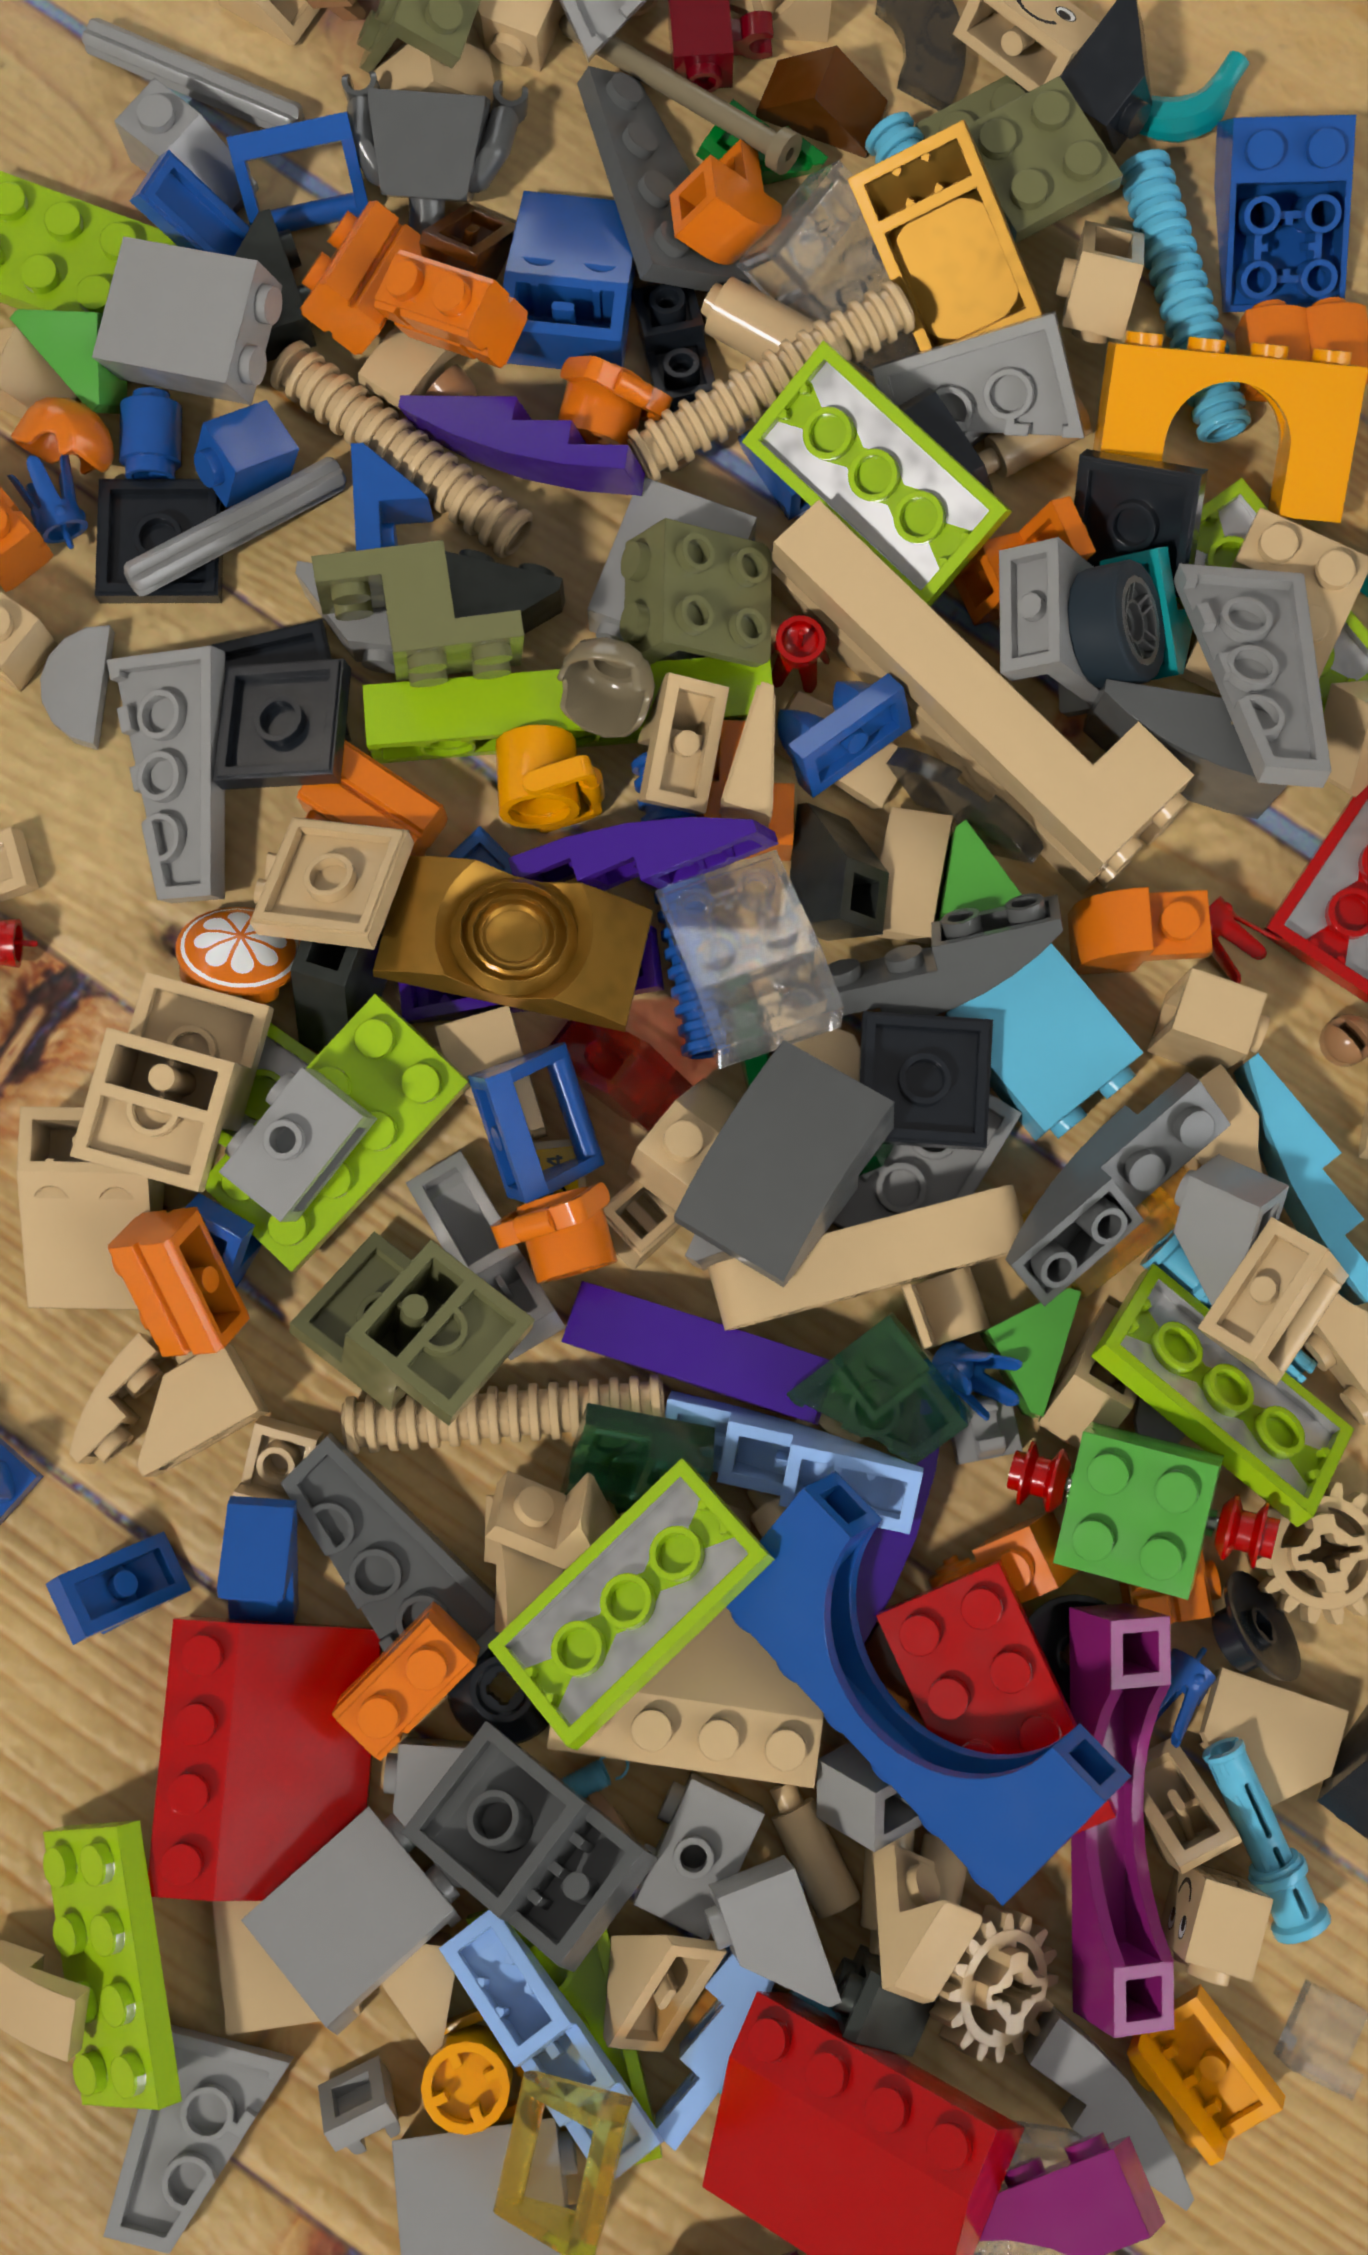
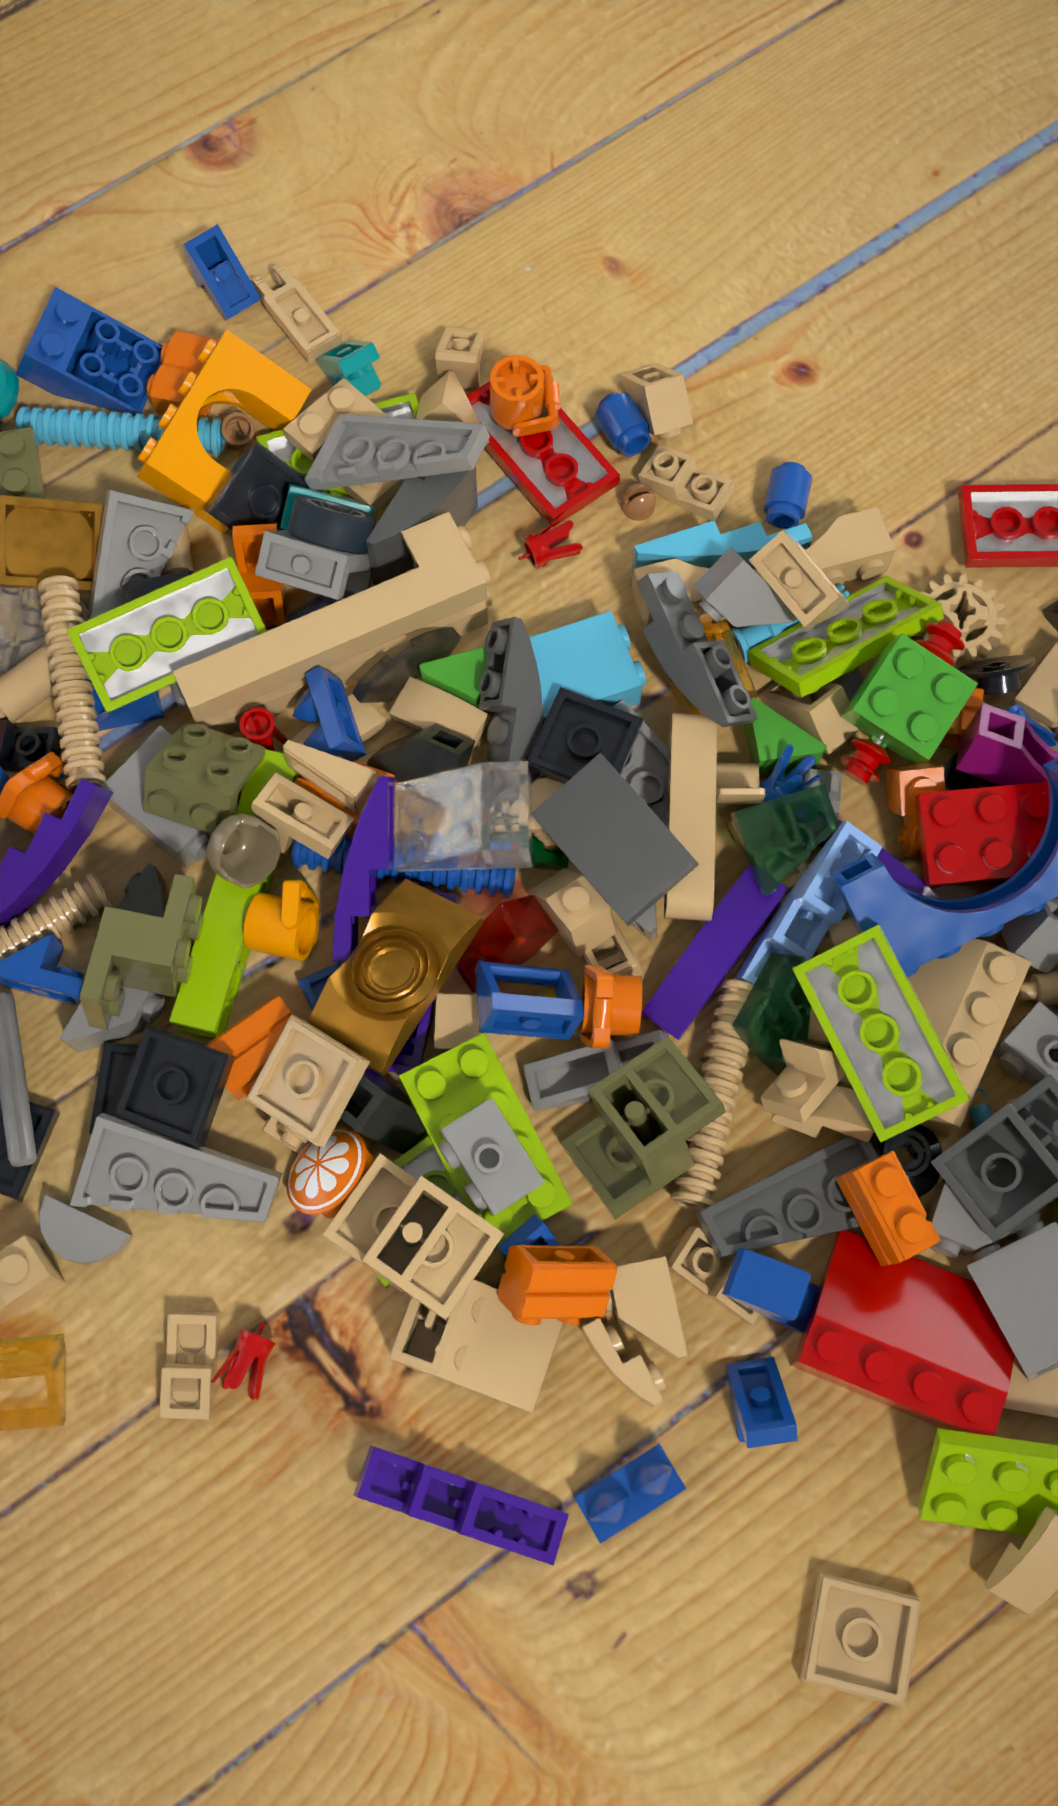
camera: 70 degrees left, 10 degrees down
(1101, 282) = (94, 465): tan brick -> none
(1134, 926) = (529, 584): orange brick -> none
(1209, 1022) = (604, 566): tan brick -> none
(1234, 442) = (246, 426): none -> medium nougat hinge

